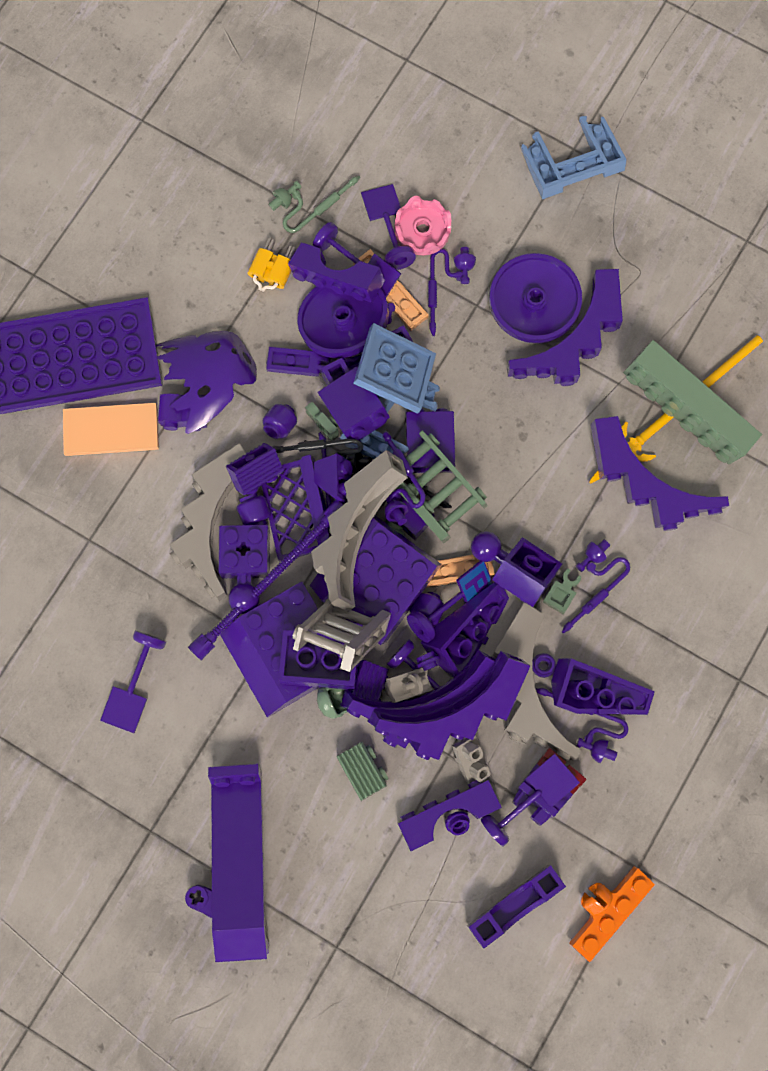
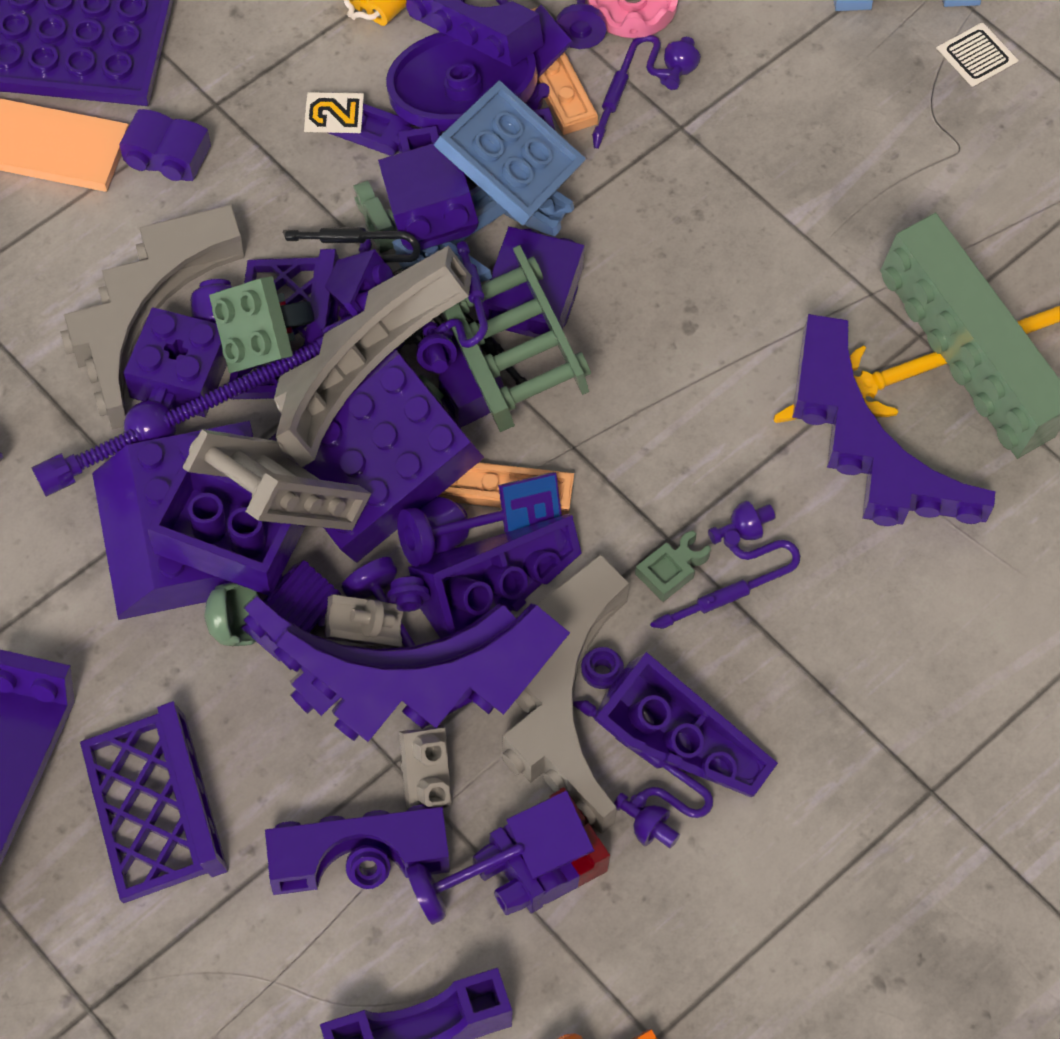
camera: 15 degrees right, 15 degrees down
(202, 367) = (235, 95): dark purple piece -> none
(255, 469) = (239, 243): dark purple brick -> none
(275, 360) = (334, 112): none -> sticker
(279, 421) = (307, 197): dark purple head -> none
(287, 522) = (257, 323): none -> sand green plate
(342, 806) = (190, 795): none -> dark purple fence
(362, 771) = (239, 739): sand green brick -> none
(522, 571) = (610, 500): dark purple brick -> none
(535, 298) = (774, 132): dark purple dish -> none
(584, 341) = (829, 215): dark purple arch -> none
(632, 204) = (977, 54): none -> white sticker

